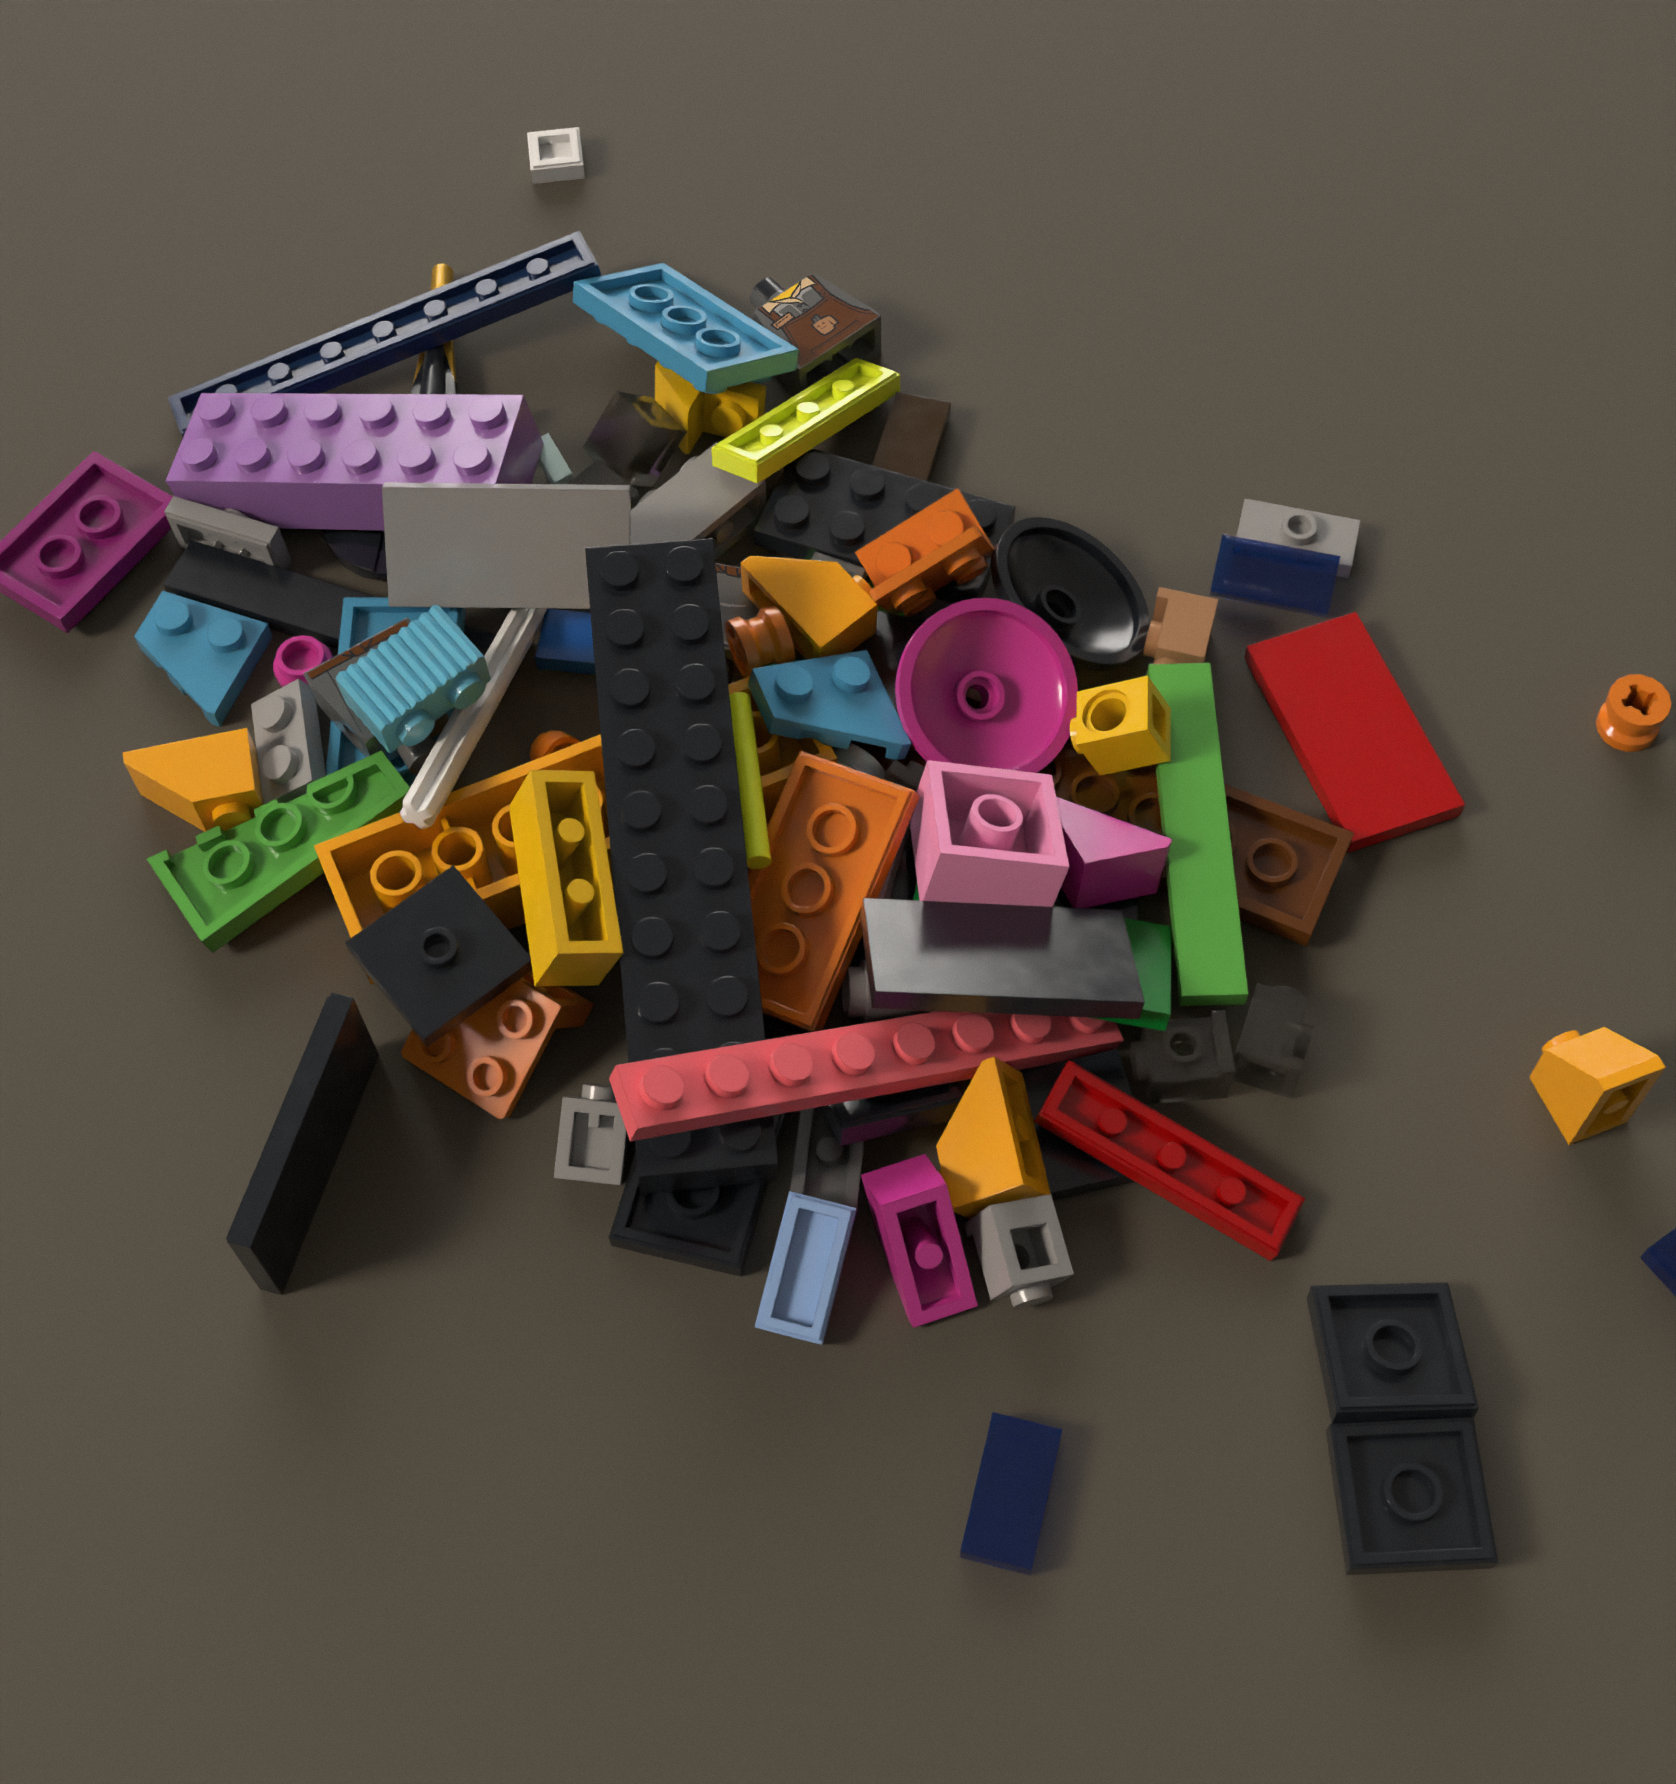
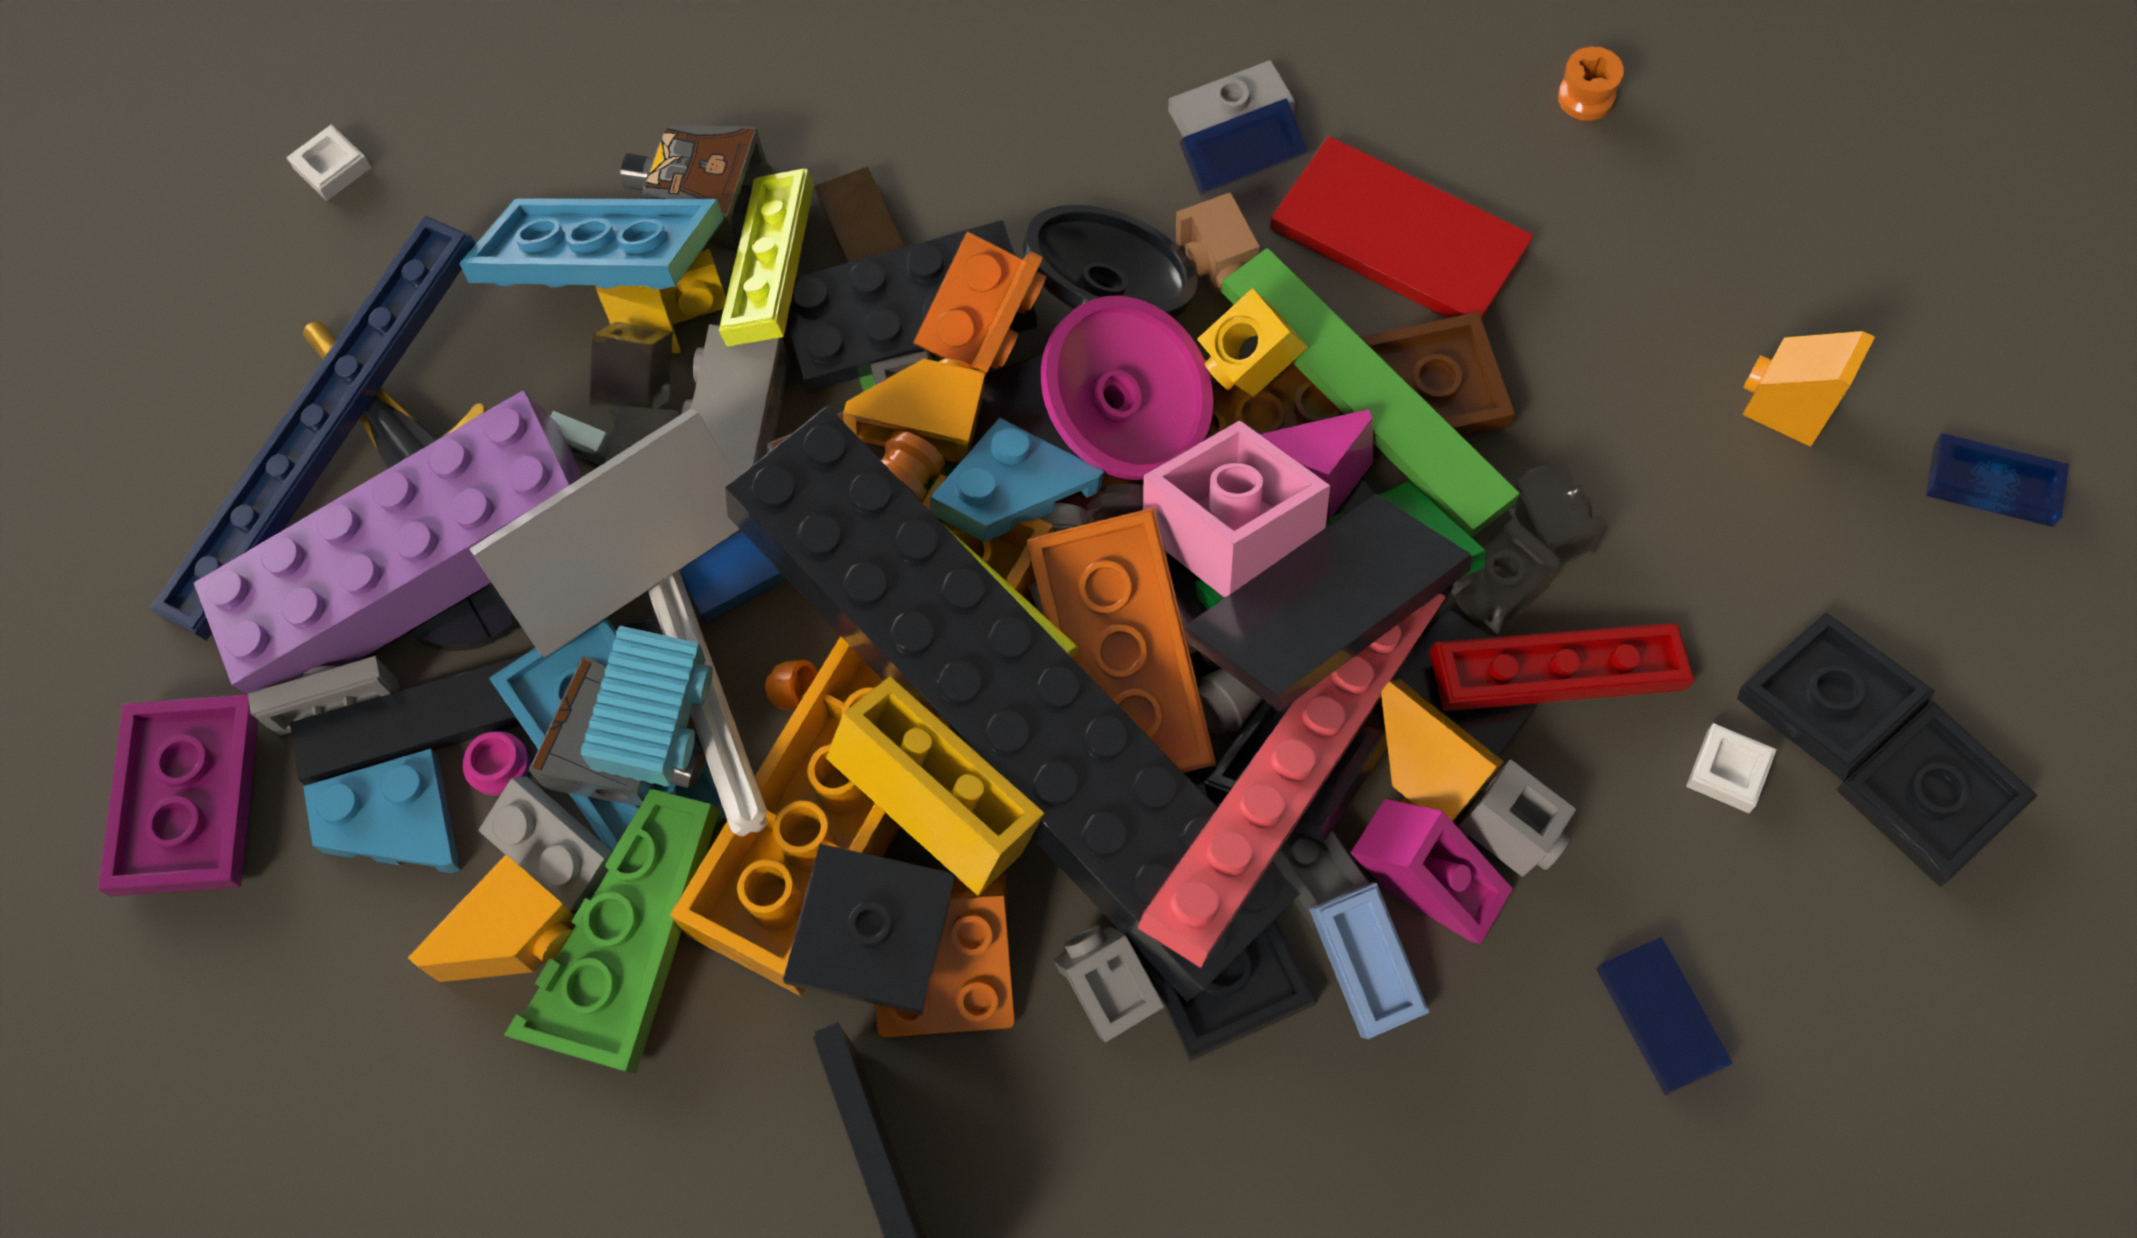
camera: 35 degrees left, 5 degrees up
(1249, 1347) = (1731, 768): none -> white tile

